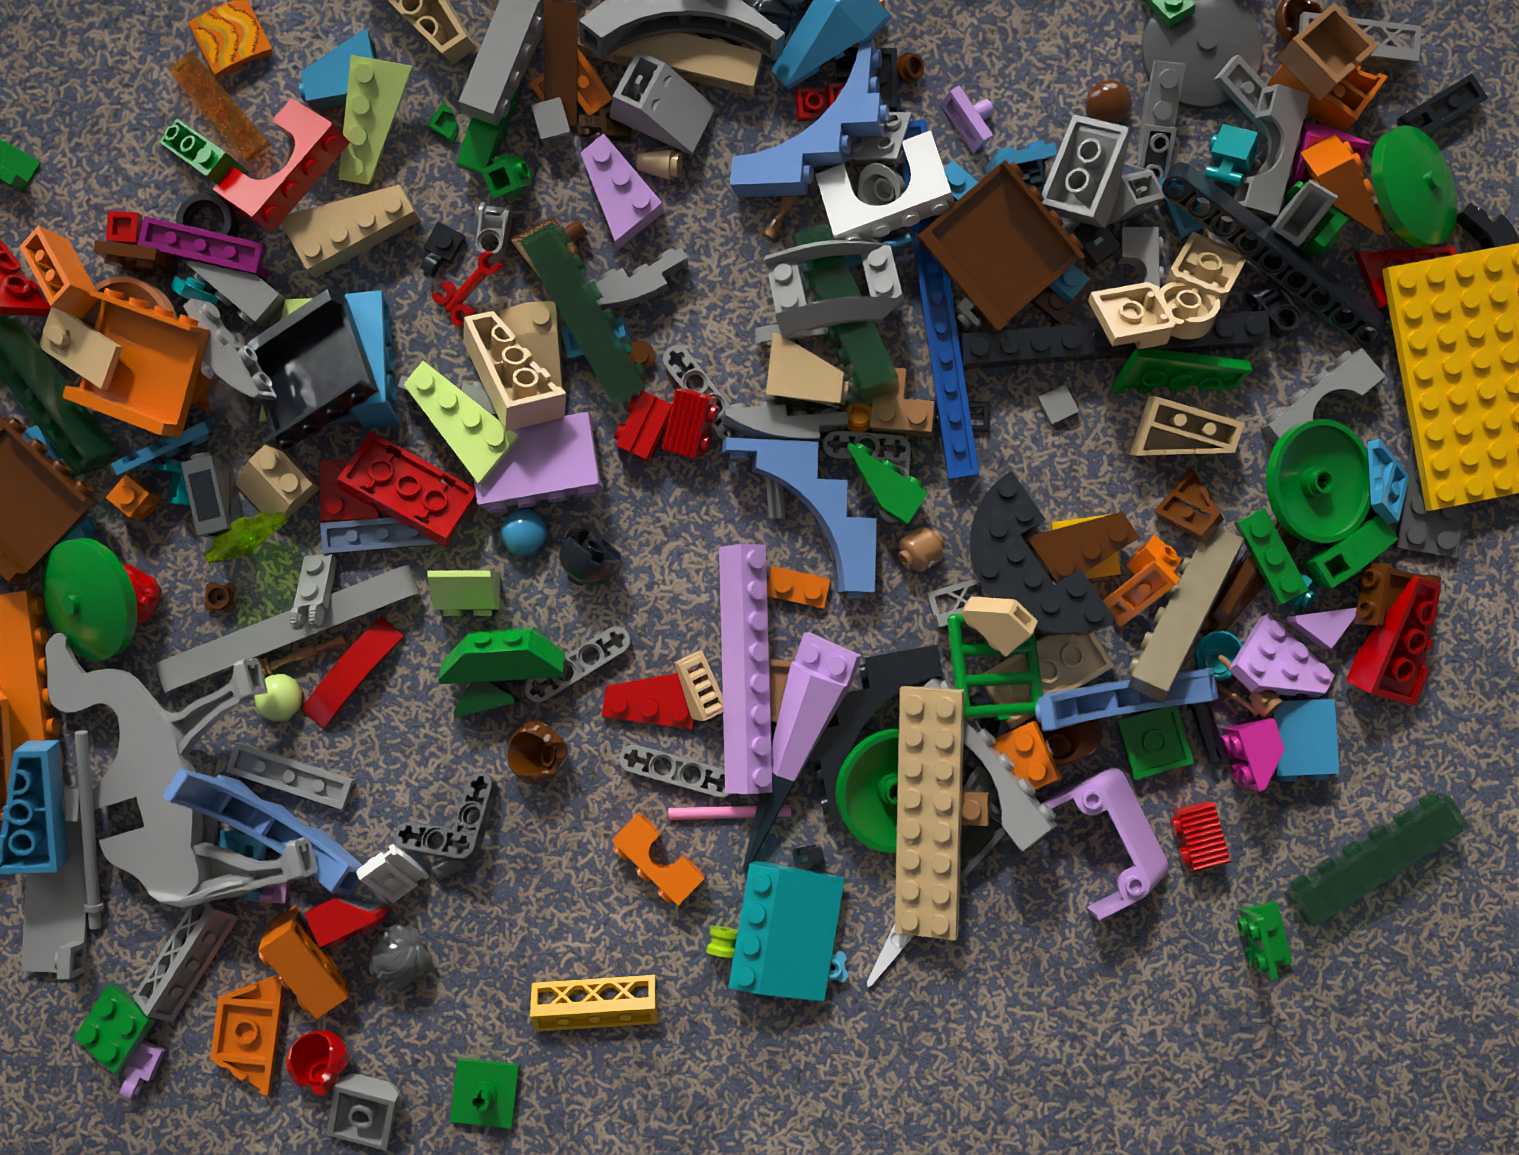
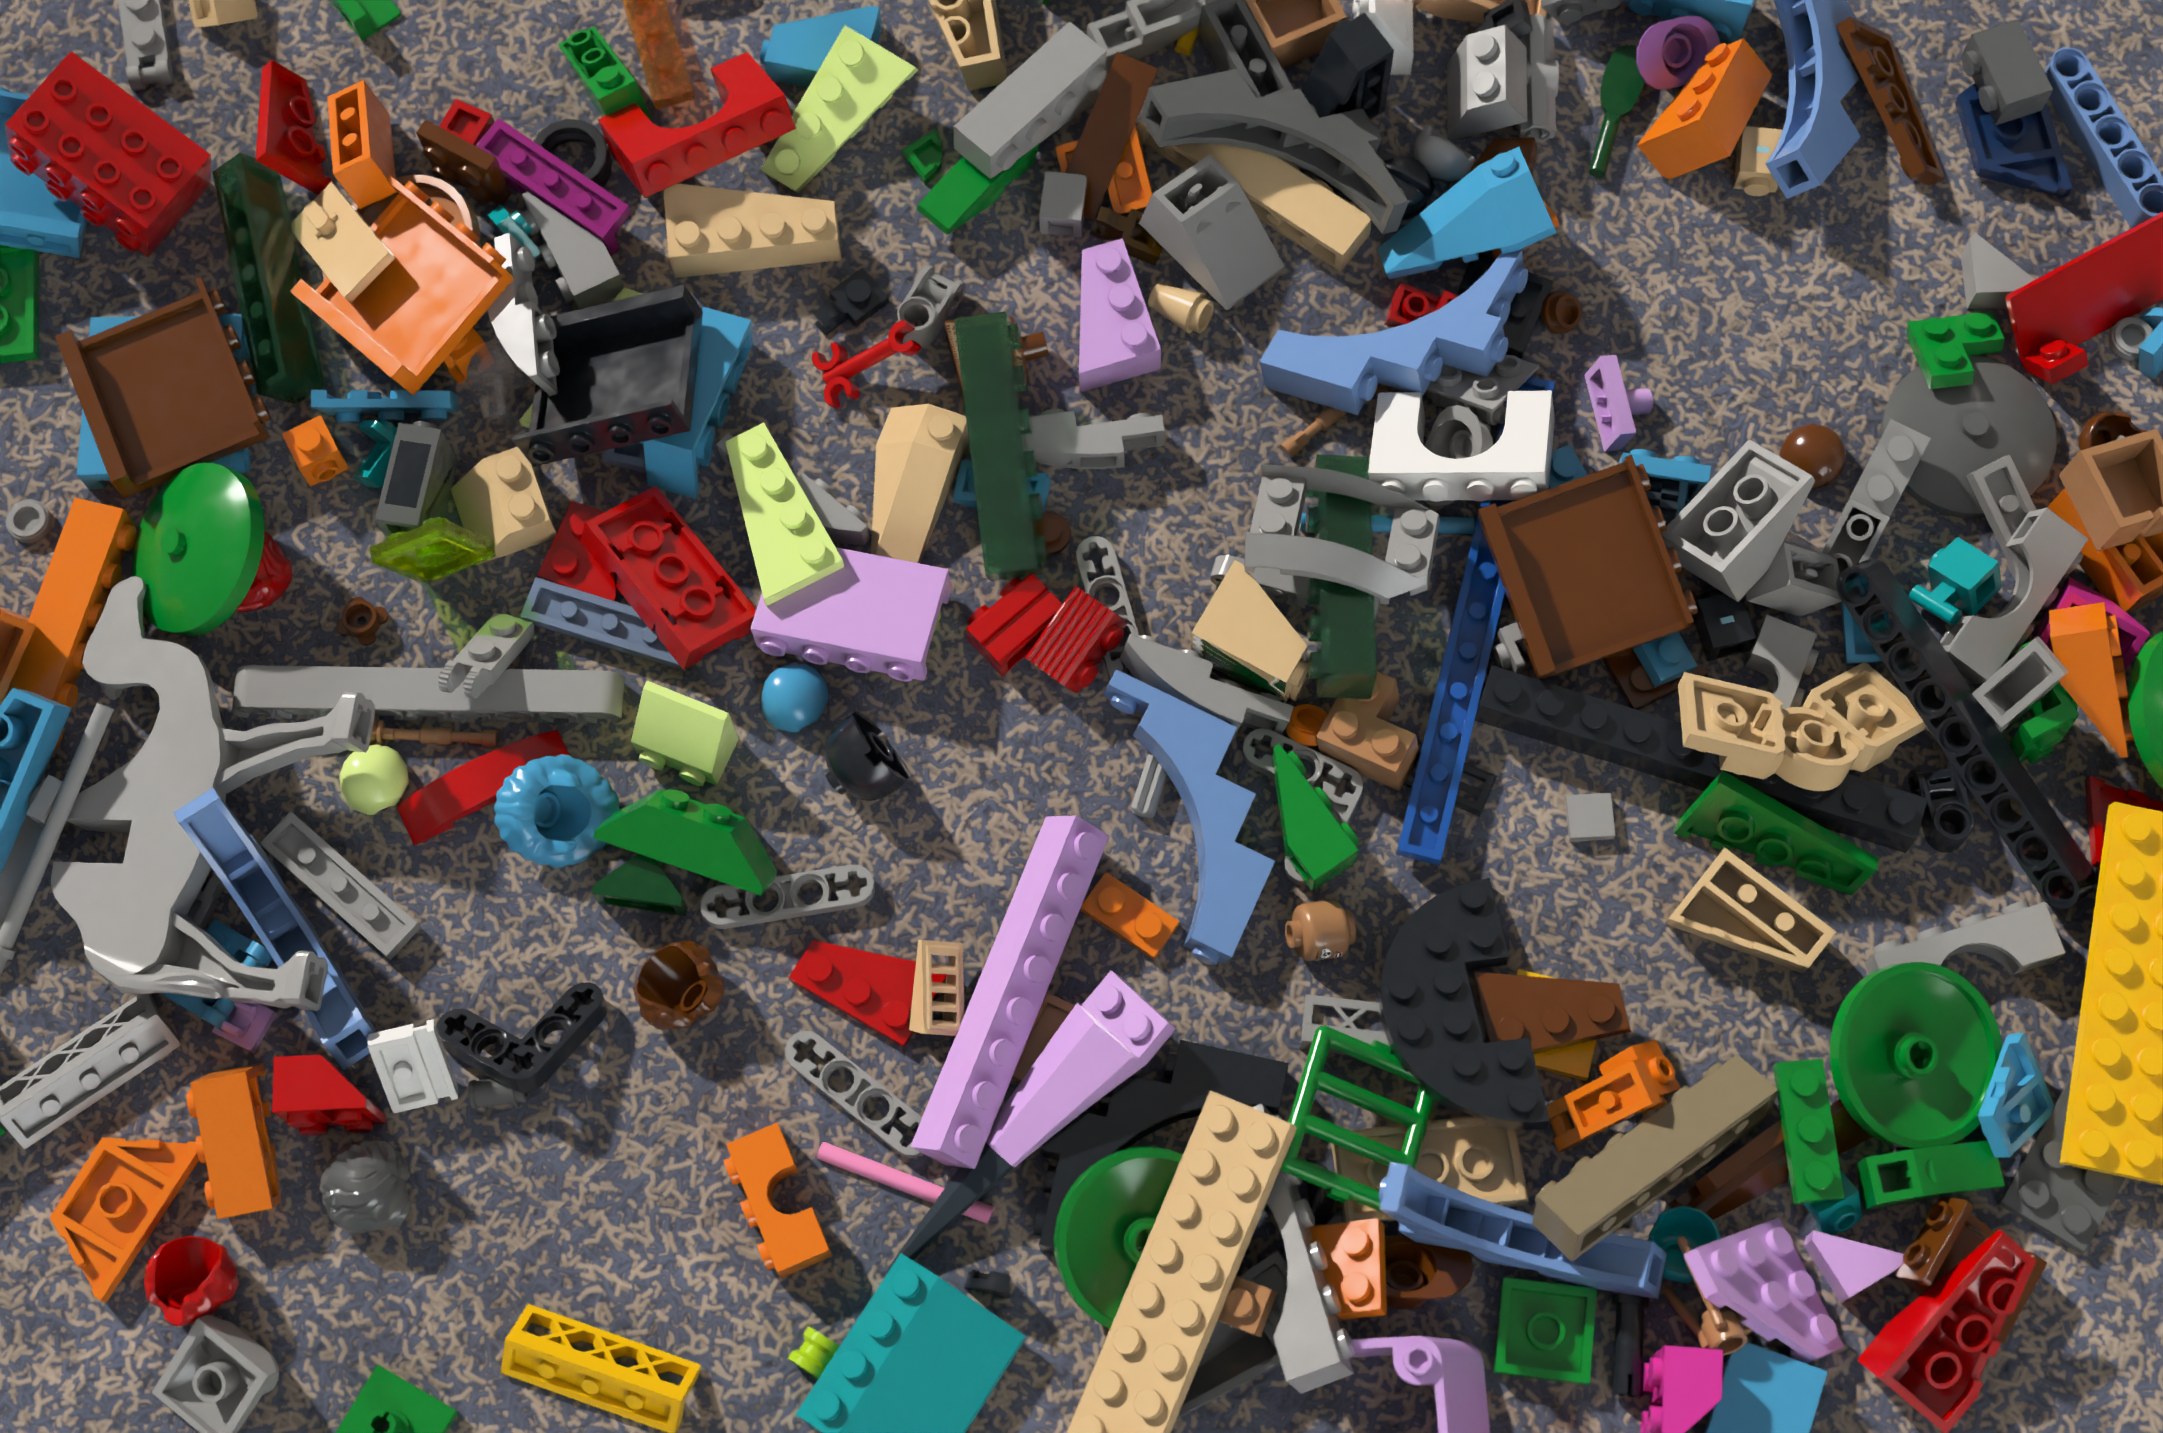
camera: 25 degrees right, 15 degrees down
(404, 672) = (553, 809): none -> dark azure piece
(507, 176) = (975, 246): green brick -> none
(512, 380) = (867, 485): tan wedge -> none
(1000, 621) = (1385, 1056): tan slope -> none
(1190, 508) = (1719, 1023): reddish brown wing -> none

